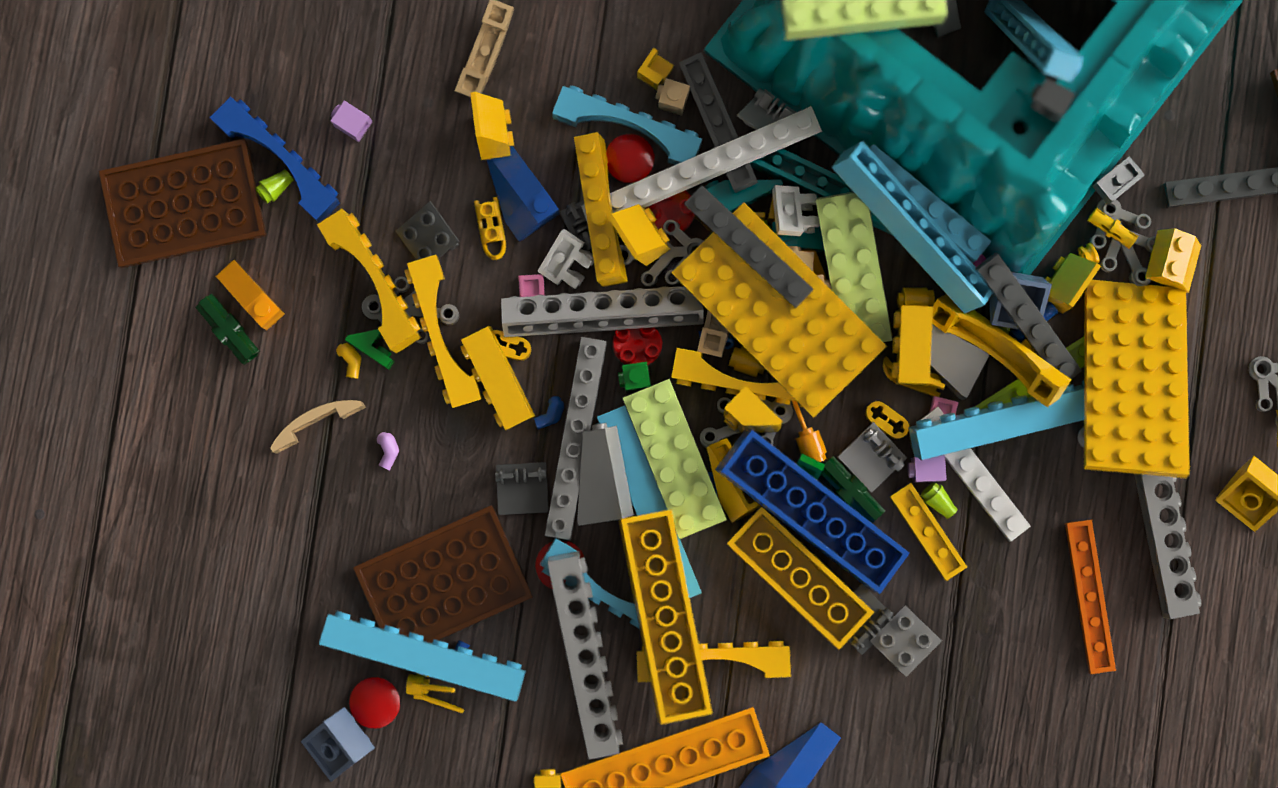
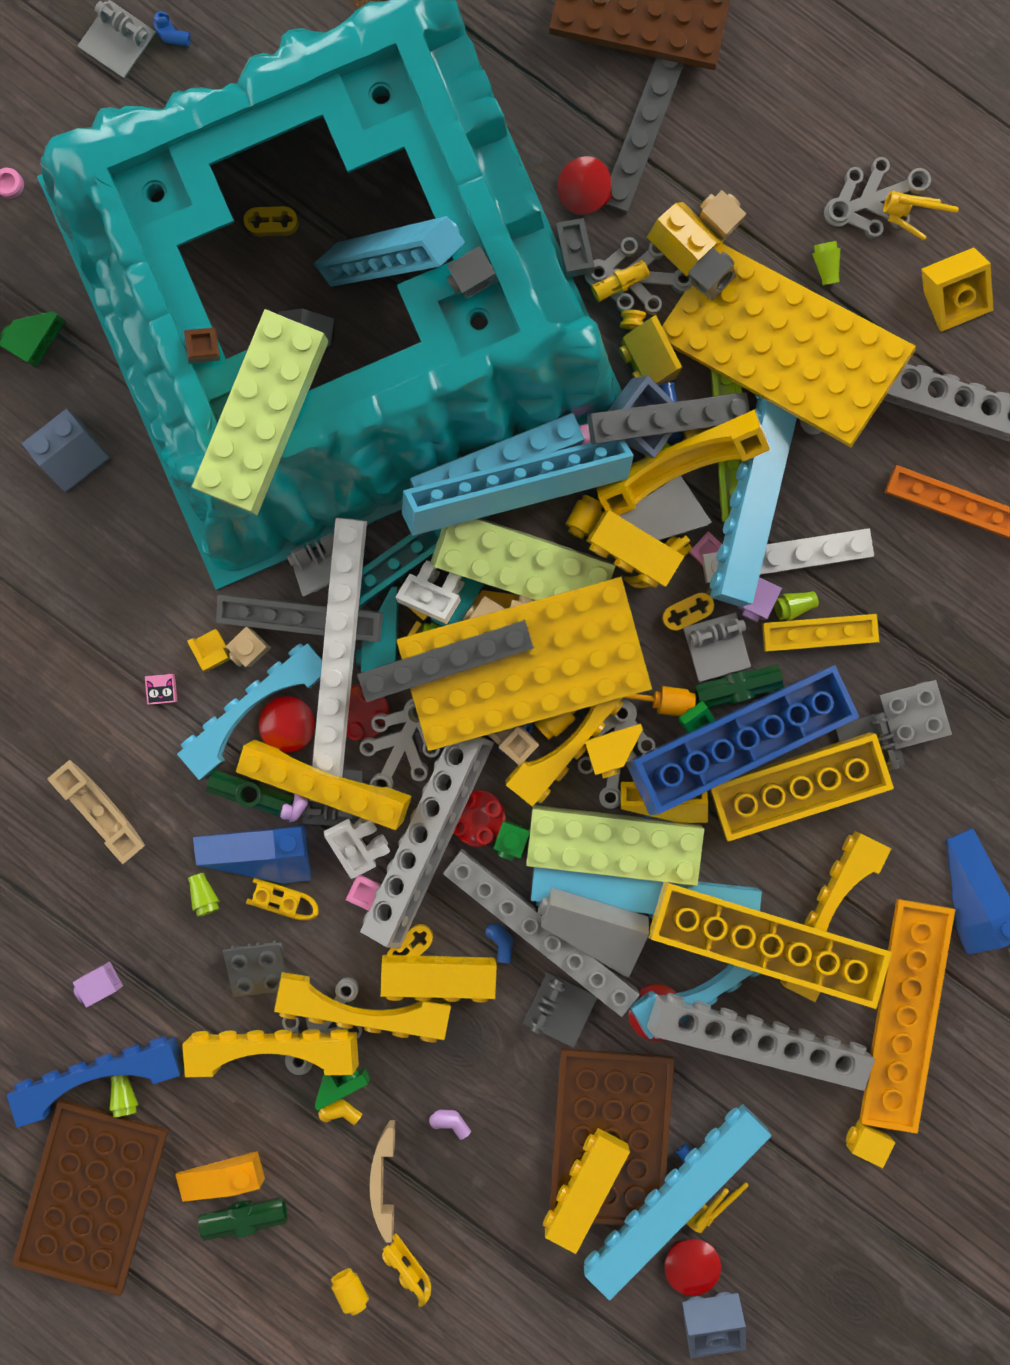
camera: 60 degrees left, 5 degrees up
(214, 442) = (349, 1292): none -> yellow brick
(250, 484) = (409, 1275): none -> yellow piece
(394, 582) = (586, 1190): none -> yellow brick
(460, 166) = (202, 895): none -> lime cone
(491, 126) = (179, 849): yellow slope -> none
(560, 144) = (233, 788): none -> dark green piece
(567, 198) = (293, 812): none -> lavender arm
(604, 48) = (161, 689): none -> tile
(640, 233) = (370, 760): yellow slope -> none
(1158, 294) = (712, 273): none -> dark grey brick
(1170, 162) = (584, 185): none -> red dish
(1208, 279) = (722, 214): none -> tan brick
(1219, 380) = (827, 261): none -> lime cone

